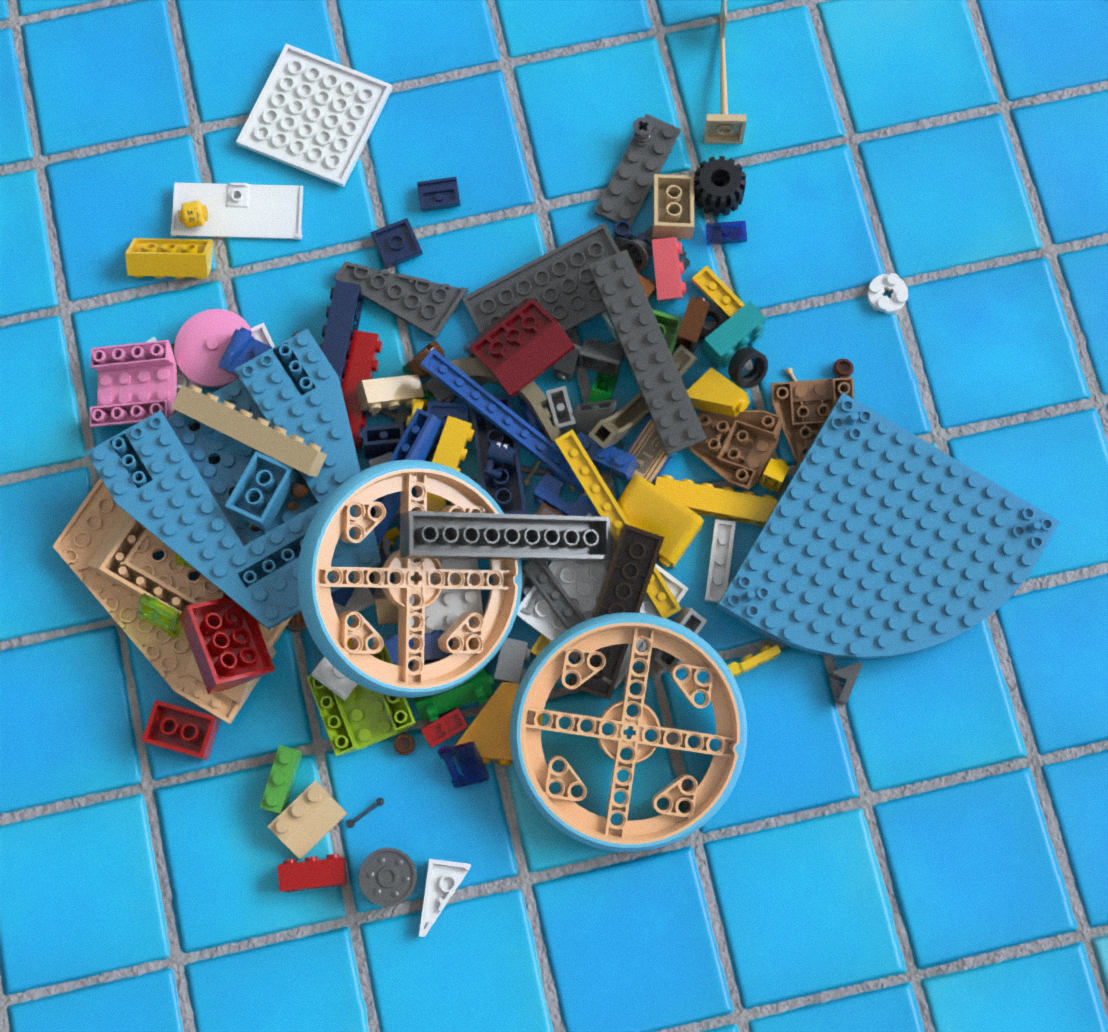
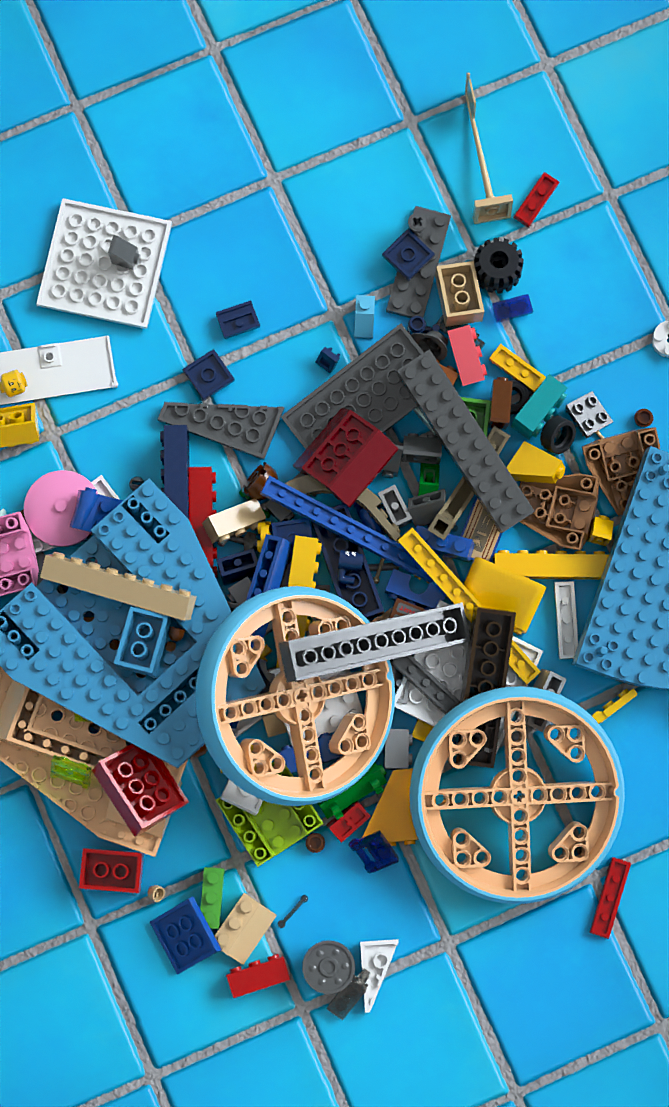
camera: 15 degrees left, 5 degrees up
(225, 763) = (156, 893): none -> tan hinge
(243, 813) = (185, 935): none -> blue plate
(333, 104) = (123, 253): none -> dark grey slope
(405, 913) = (348, 997): none -> clear smoke hinge
(523, 249) = (327, 359): none -> dark blue tile
(570, 213) = (364, 316): none -> medium azure slope
(627, 159) = (408, 255): none -> dark blue plate
(710, 865) = (610, 897): none -> red tile
(773, 130) = (536, 199): none -> red tile
(784, 354) = (588, 414): none -> hinge

